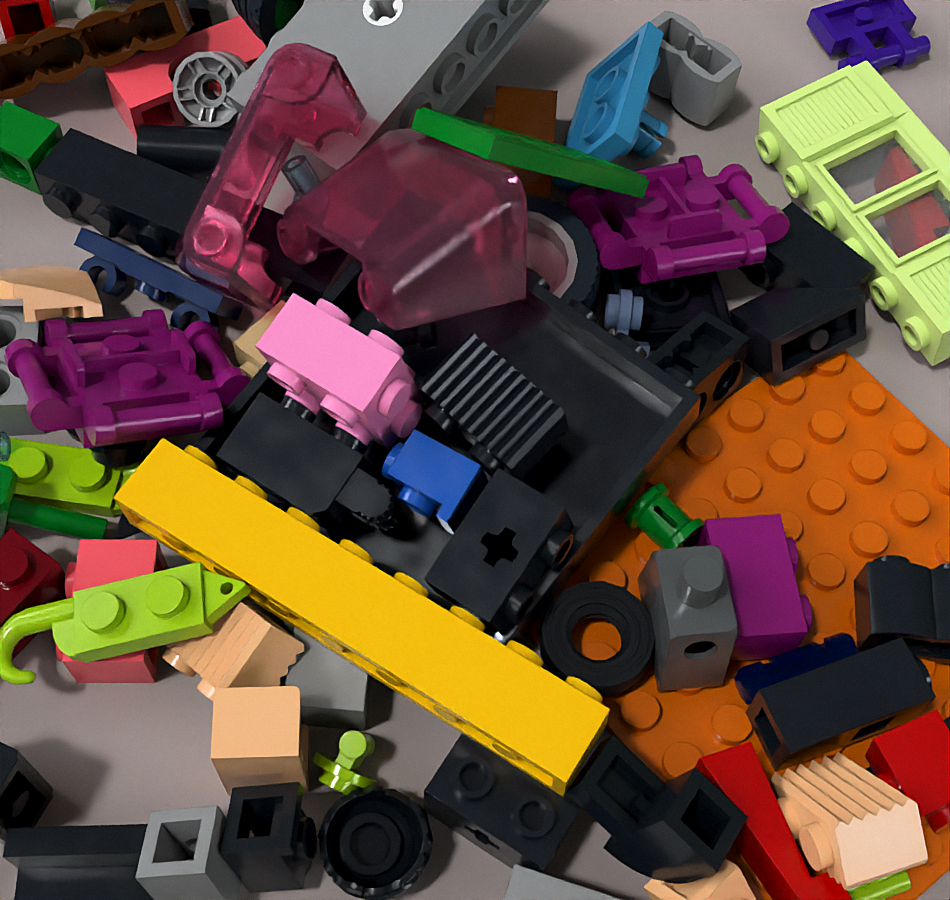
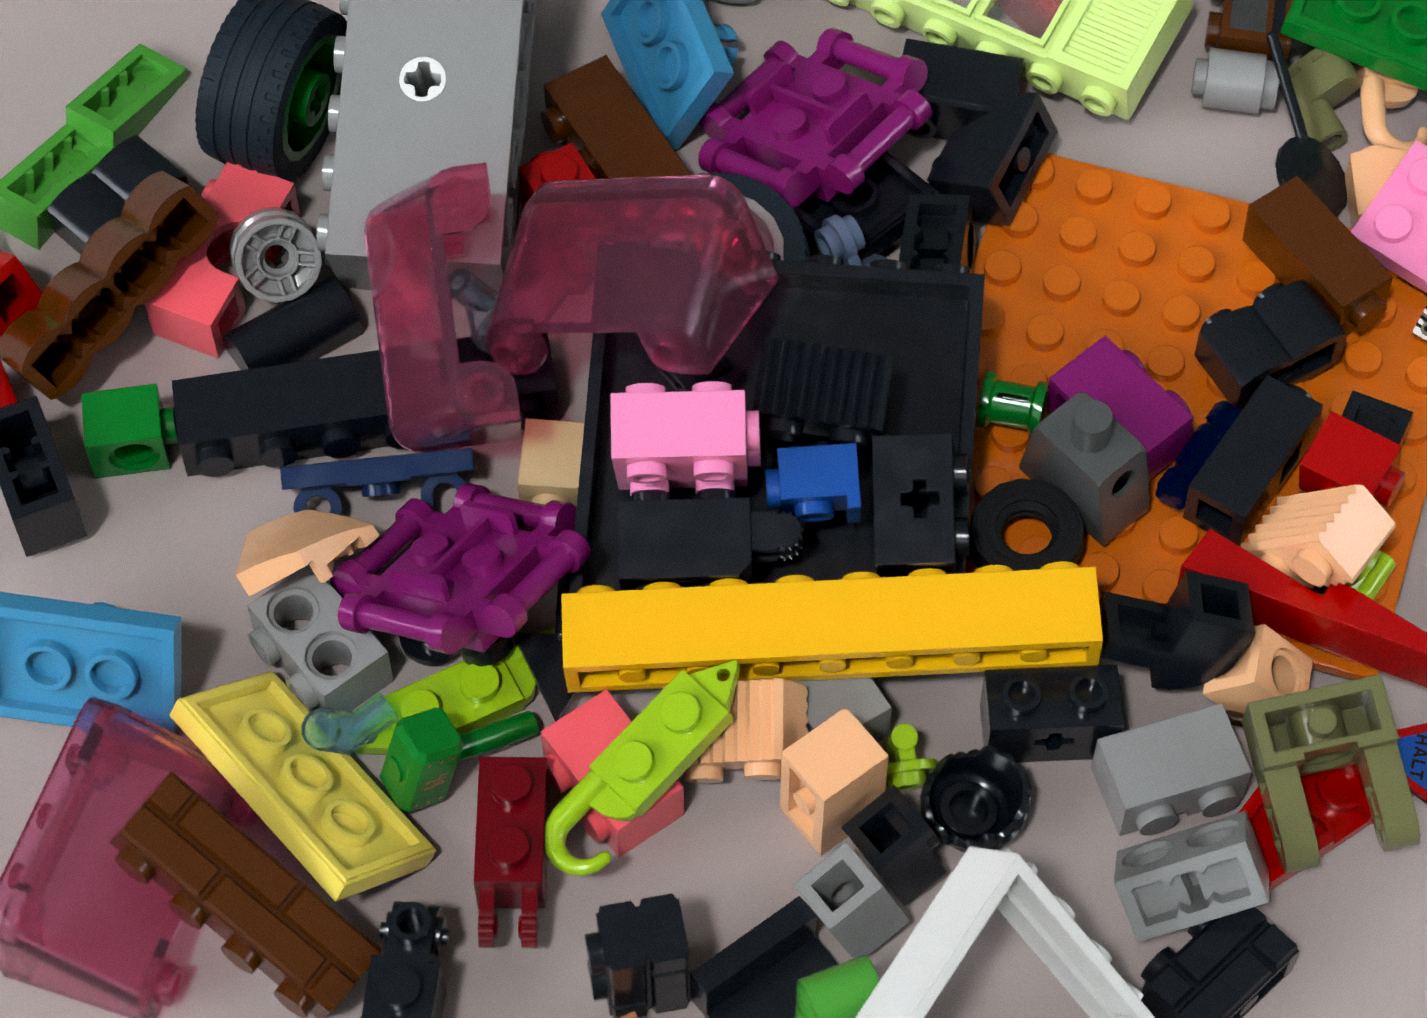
camera: 30 degrees left, 0 degrees up
(528, 152) = (671, 141): green tile -> none

